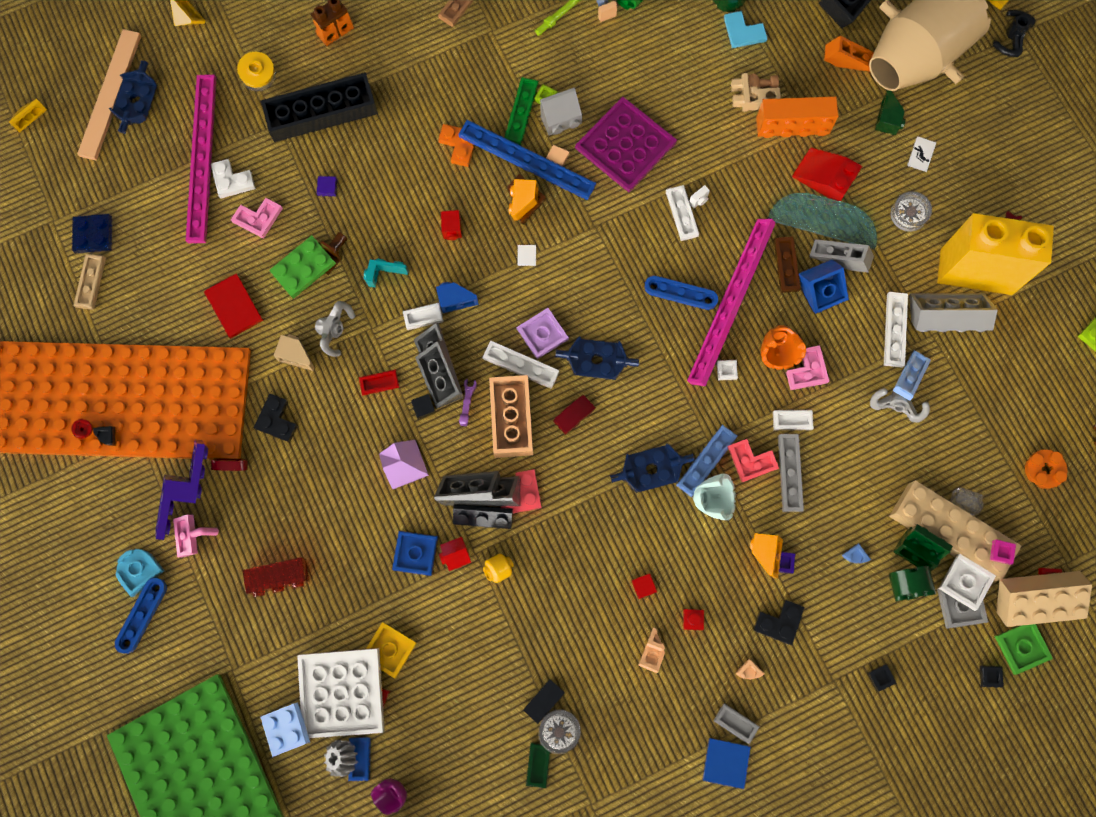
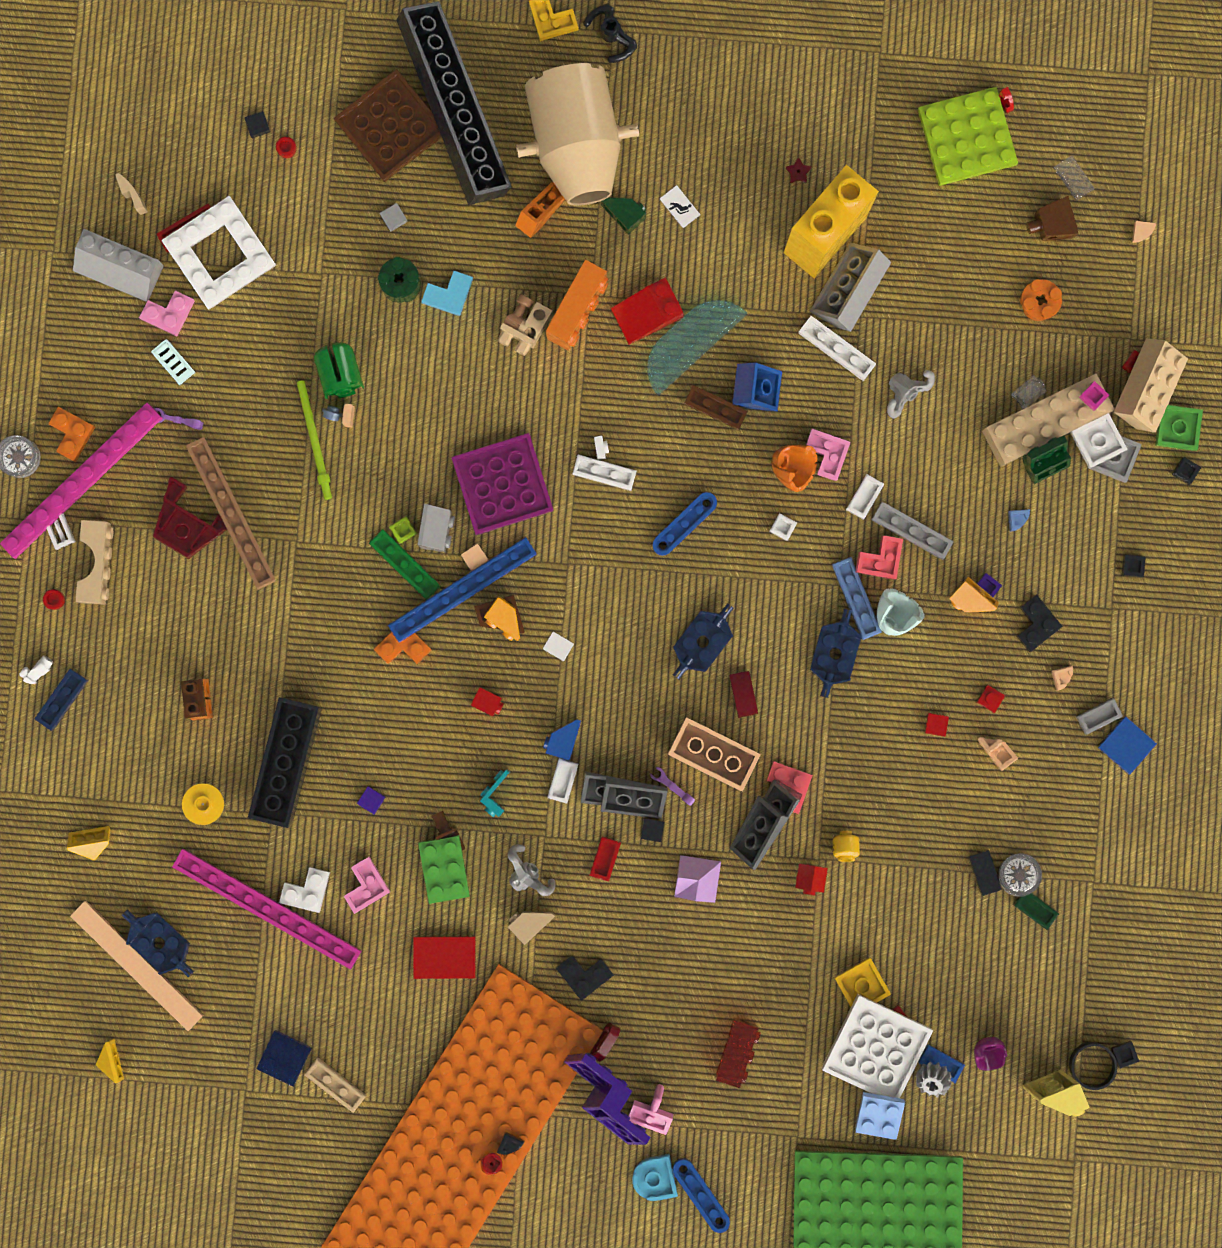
camera: 60 degrees left, 10 degrees up
(415, 553) = (787, 914): blue tile -> none
(482, 516) = (790, 833): black plate -> none
(521, 364) = (666, 716): white plate -> none
(542, 333) = (648, 677): lavender plate -> none
(731, 302) = (721, 482): dark pink plate -> none
(848, 255) = (737, 350): light grey slope -> none
(911, 211) = (733, 258): clear piece -> none
(911, 375) = (889, 364): light blue tile -> none
(912, 583) = (1072, 489): dark green brick -> none

